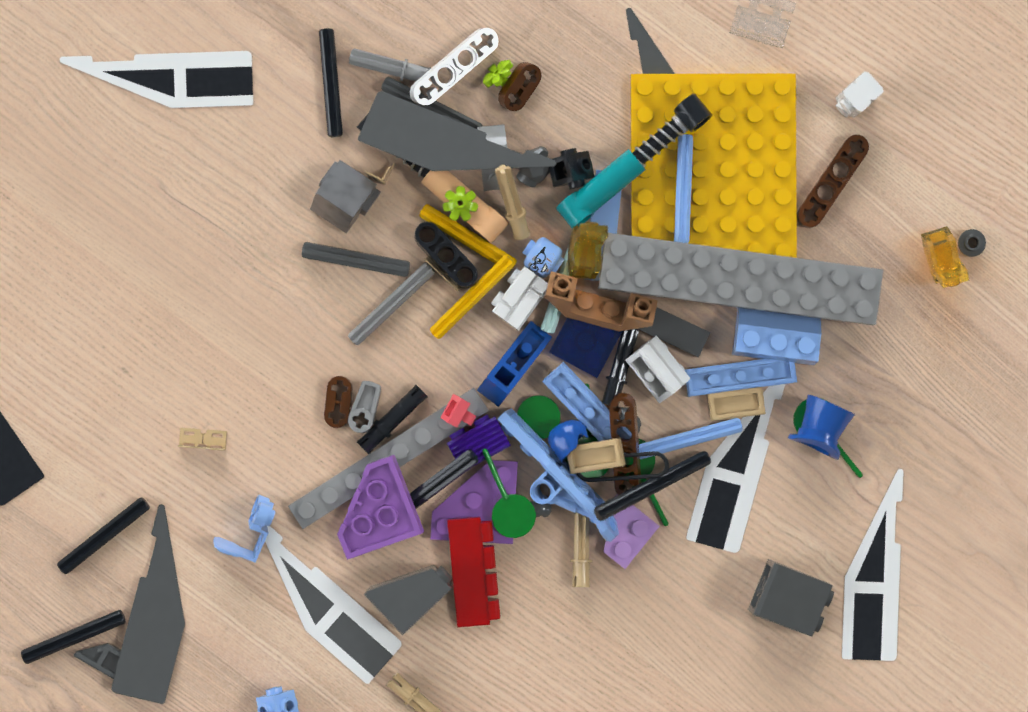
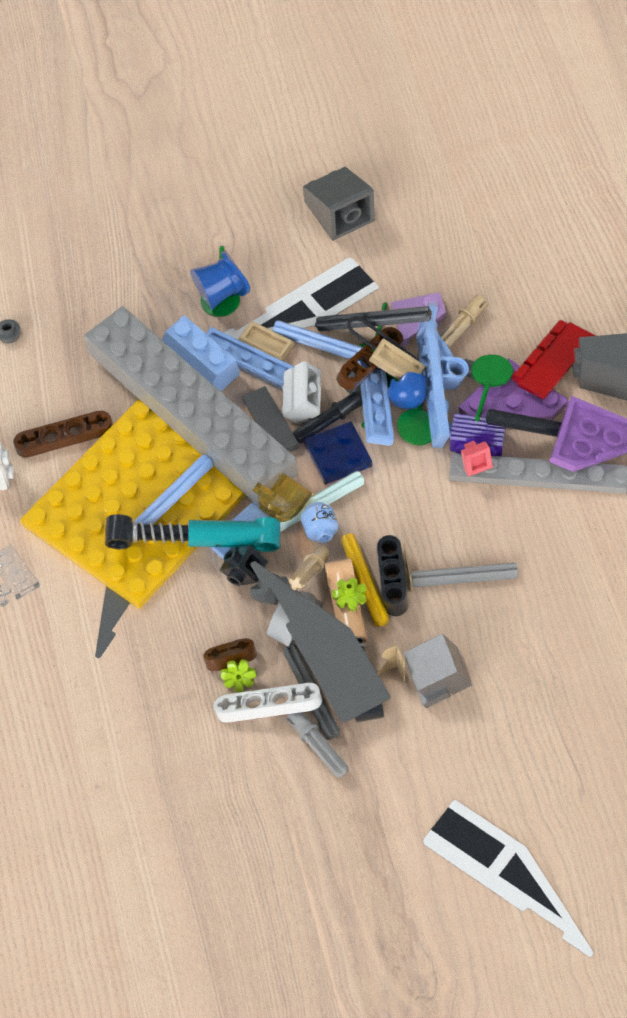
camera: 135 degrees left, 30 degrees down
(330, 82) = (376, 767): black axle -> none
(345, 403) = (559, 532): reddish brown beam -> none
(355, 259) = (466, 624): dark grey axle -> none
(367, 403) = (545, 515): light grey piece -> none
(392, 419) = (531, 495): black pin -> none
(472, 297) = (402, 532): yellow axle -> none
(514, 363) = (405, 468): blue slope -> none
(520, 298) = (361, 508): white brick -> none
(596, 309) = (310, 460): medium nougat slope -> none
(873, 586) = (274, 181): white sticker -> none
(943, 258) = (38, 329): clear yellow brick -> none

